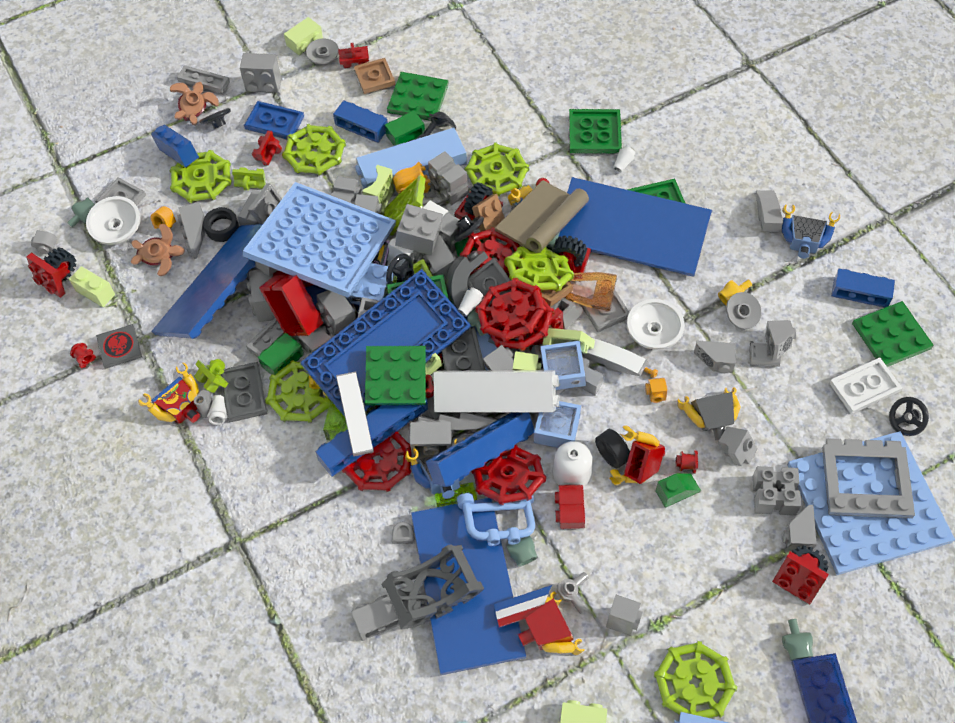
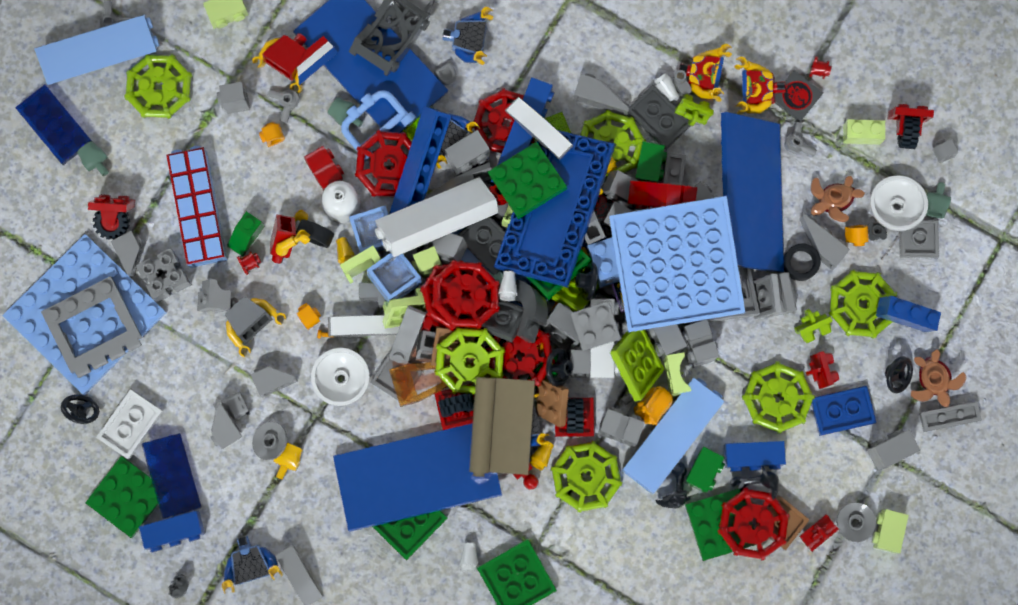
camera: 145 degrees right, 20 degrees up
(145, 217) = (872, 233): none -> dark grey plate
(145, 361) = (757, 87): none -> torso
(152, 309) = (794, 143): none -> light grey piece
(283, 438) = (595, 93): none -> light grey slope
(359, 549) = (469, 36): none -> torso
(364, 98) = (767, 479): none -> black piece
(393, 71) = (745, 531): none -> red plate
(581, 318) = (407, 336): none -> light grey slope
(592, 400) = (360, 263): none -> yellowish green piece
(594, 422) = (344, 250): none -> yellow cone
(603, 565) = (272, 134): none -> light orange plate
(713, 538) = (196, 206): none -> light blue brick
(845, 327) = (171, 475): none -> clear blue plate
(875, 247) = (179, 586): none -> dark grey plate

